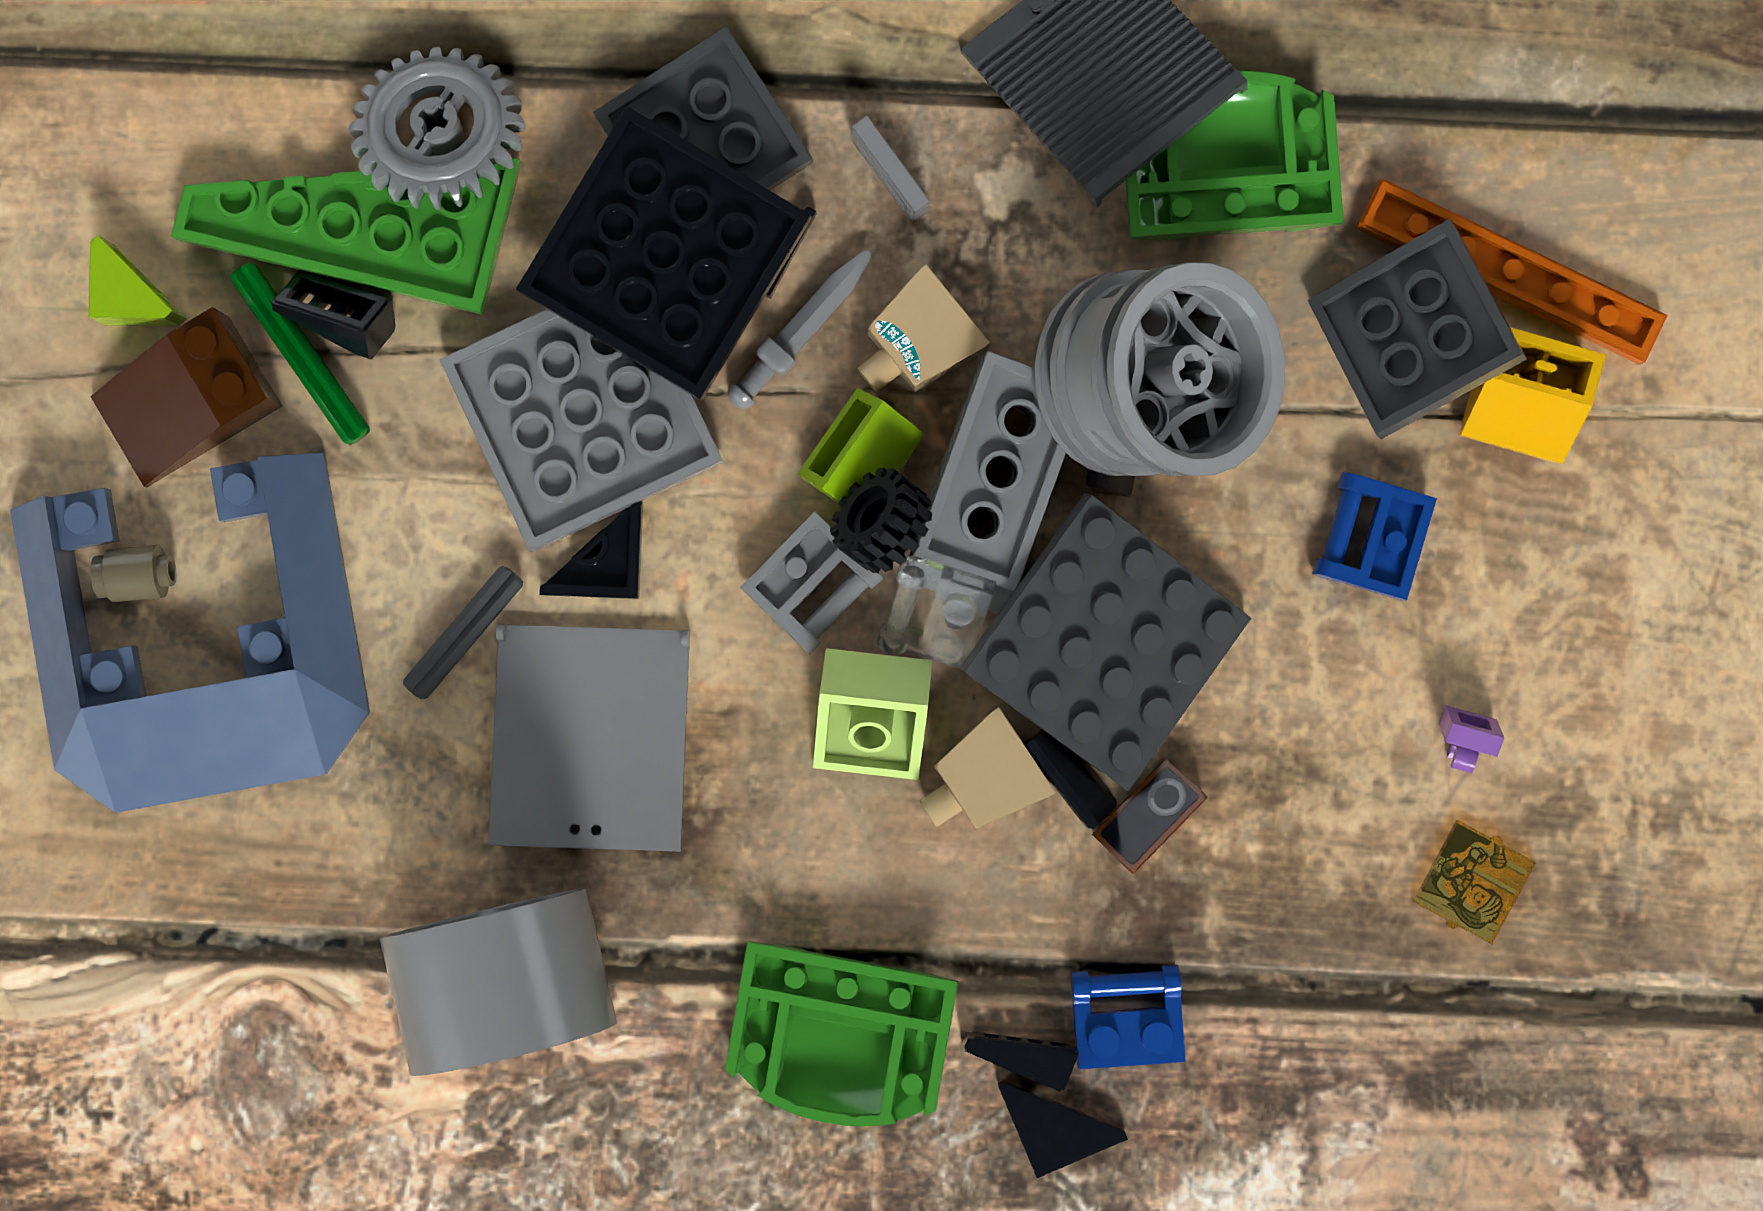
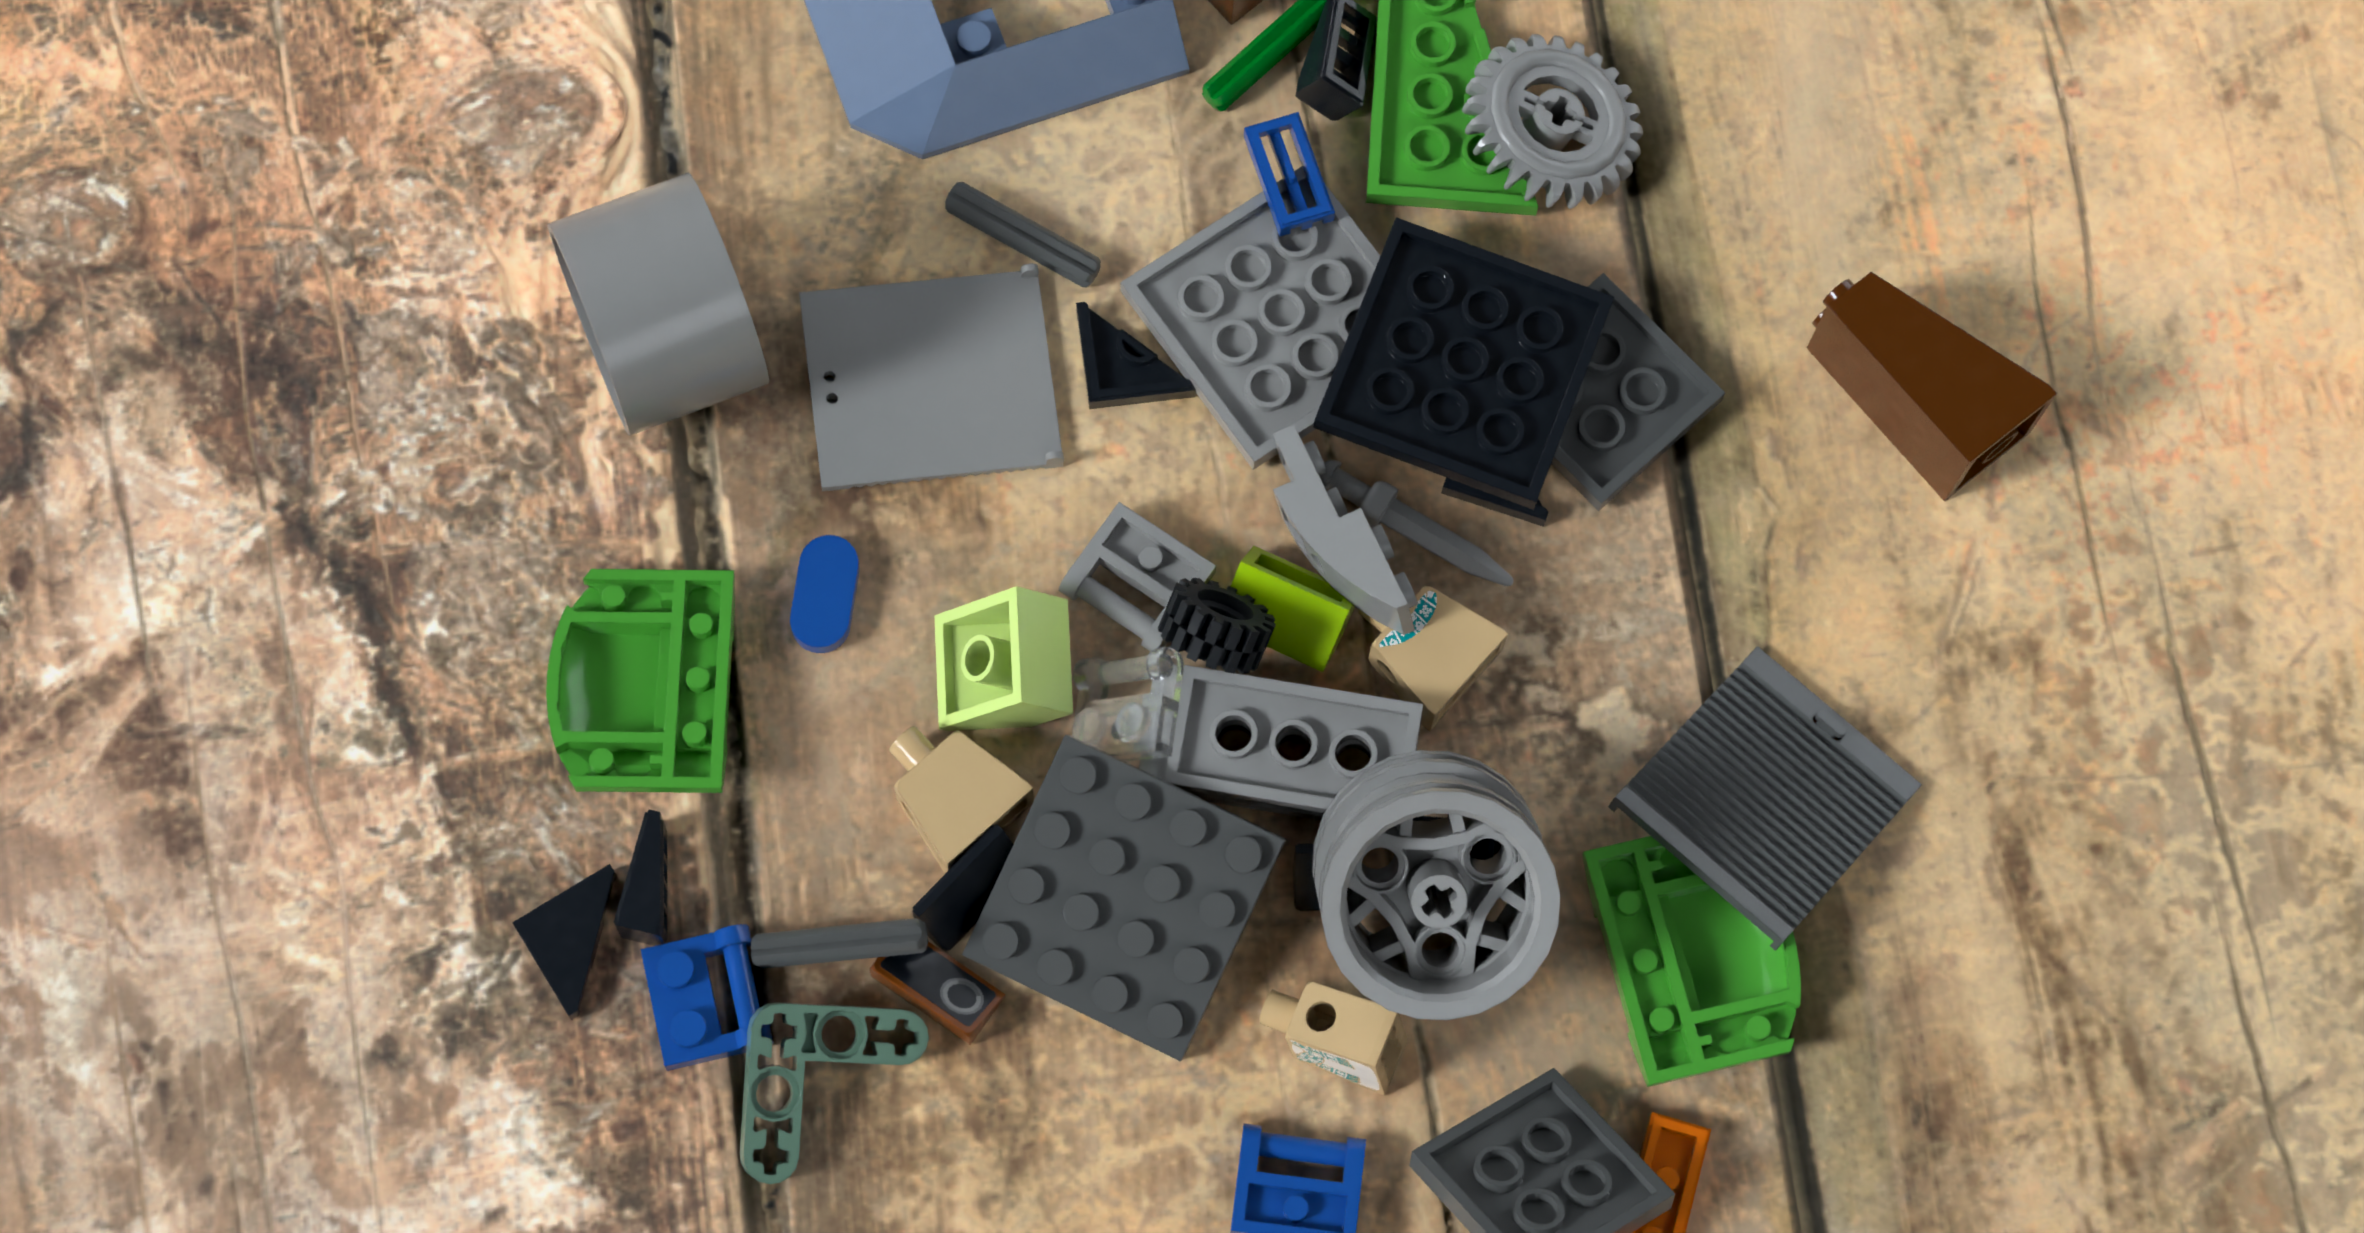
camera: 75 degrees right, 15 degrees down
(495, 373) = (1303, 216): none -> blue tile
(778, 862) = (824, 594): none -> blue tile
(827, 395) = (1340, 542): none -> light grey slope
(889, 169) = (1605, 587): light grey tile -> none
(1105, 896) = (839, 943): none -> dark grey axle
(1192, 938) = (804, 1046): none -> sand green beam
(1275, 466) = (1358, 1046): none -> tan torso

